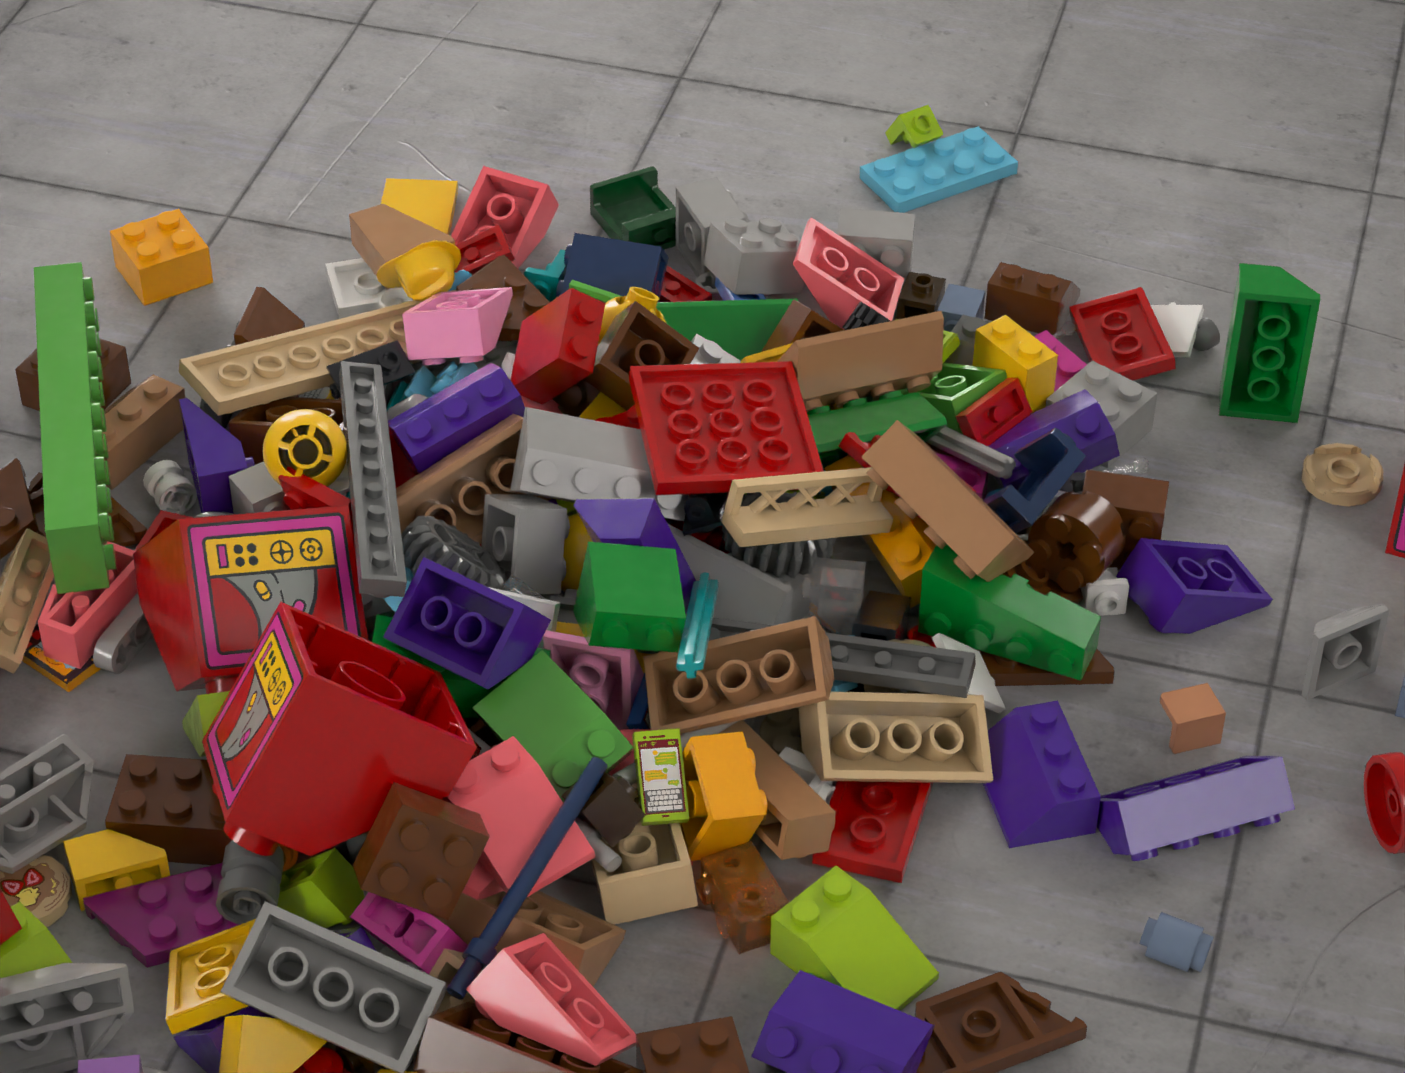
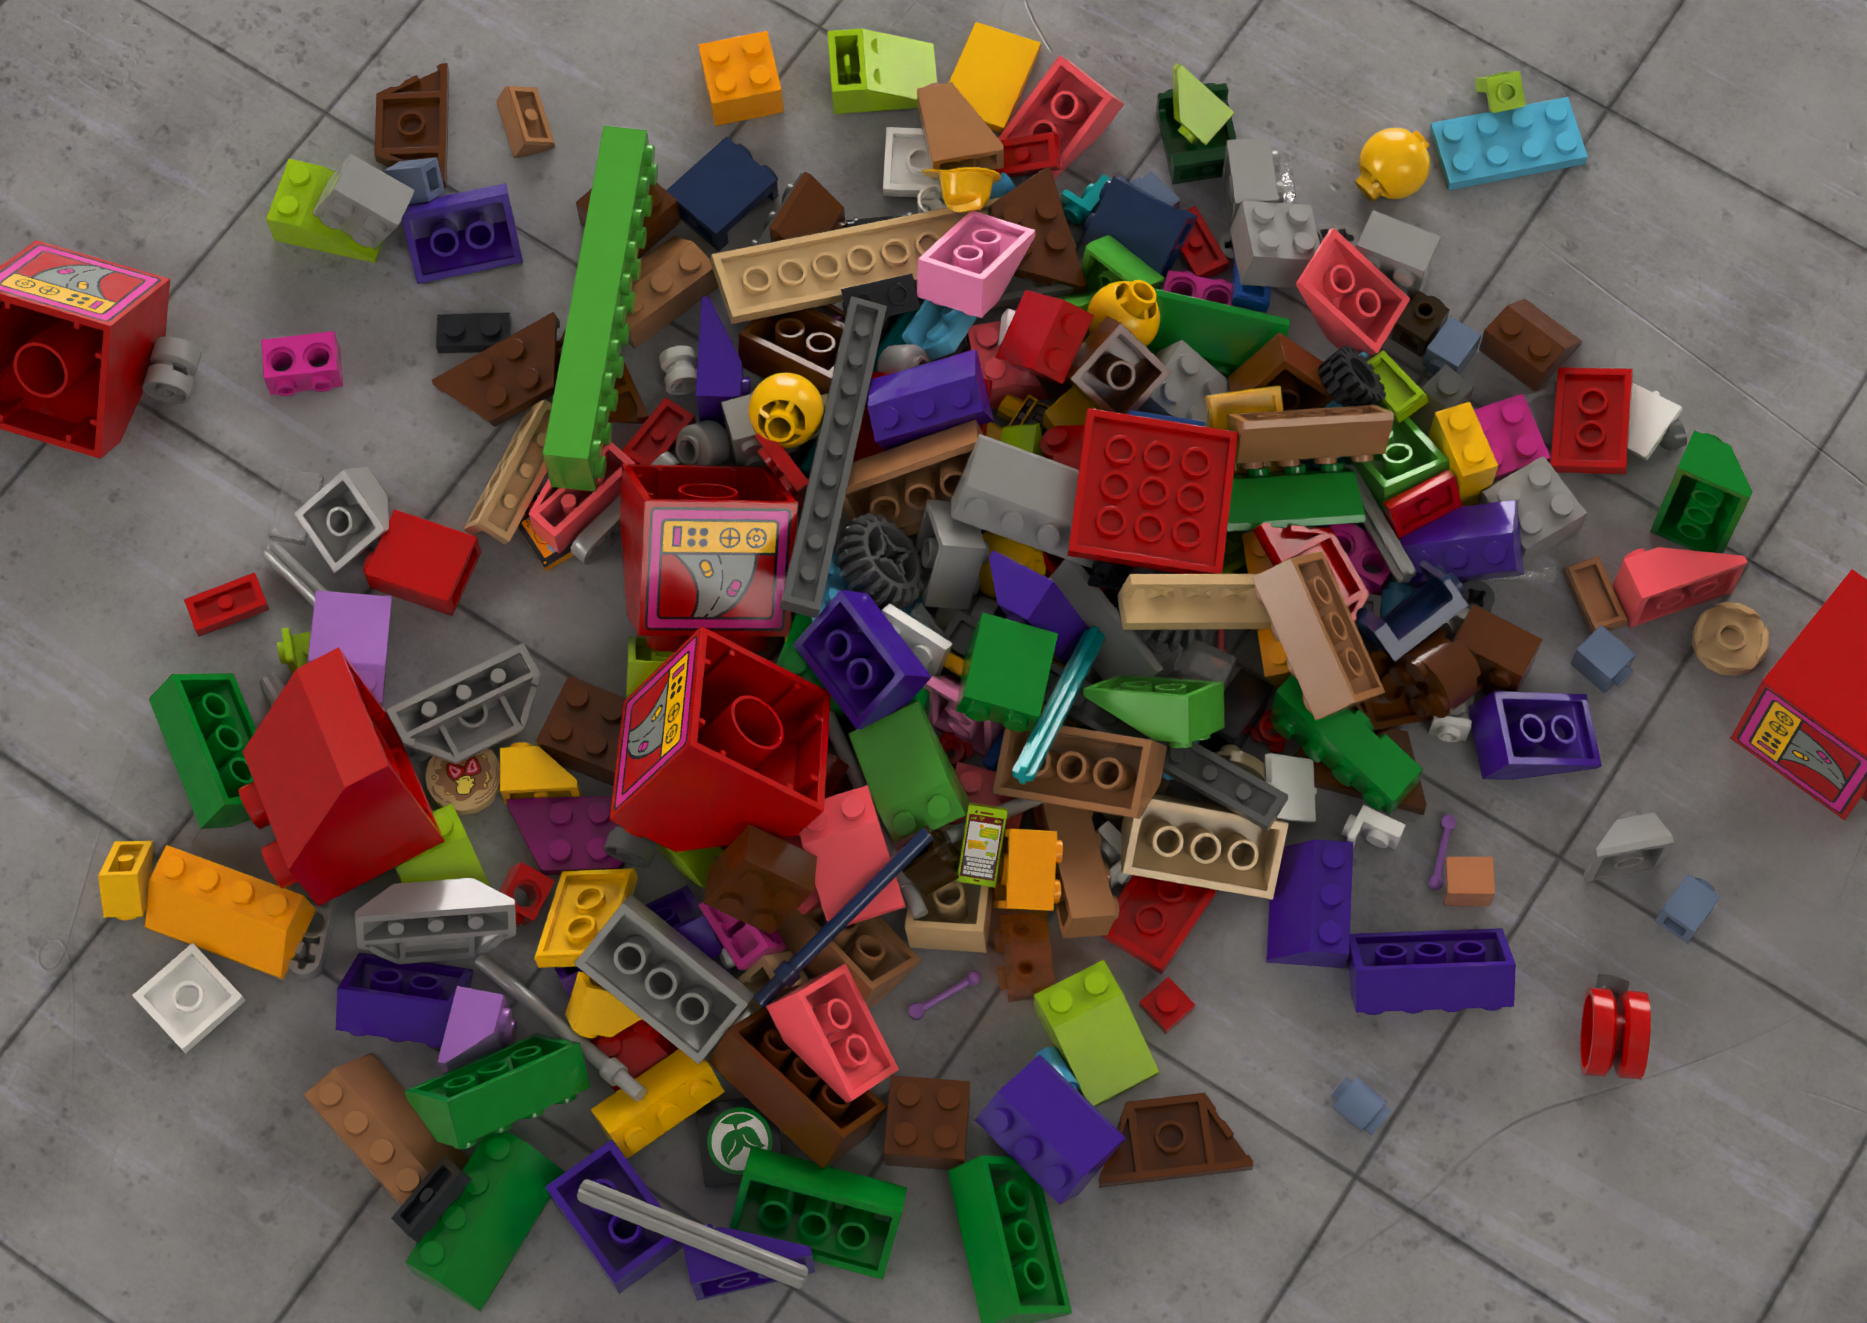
camera: 20 degrees right, 25 degrees up
(144, 969) = (534, 884): none -> red brick
(170, 333) = (722, 191): none -> dark blue panel
(296, 226) = (877, 70): none -> lime slope
(631, 180) = (1196, 107): none -> lime slope
(638, 985) = (917, 1010): none -> medium lavender hinge
(834, 594) = (1163, 707): none -> bright green slope
(837, 186) = (1393, 164): none -> yellow brick
(920, 909) = (1167, 1005): none -> red plate
(1076, 693) = (1377, 828): none -> white bracket
(1142, 683) = (1447, 823): none -> medium lavender hinge
(1194, 471) = (1595, 595): none -> medium nougat tile
(1230, 511) = (1604, 660): none -> sand blue brick
(1267, 429) = (1672, 580): none -> coral slope

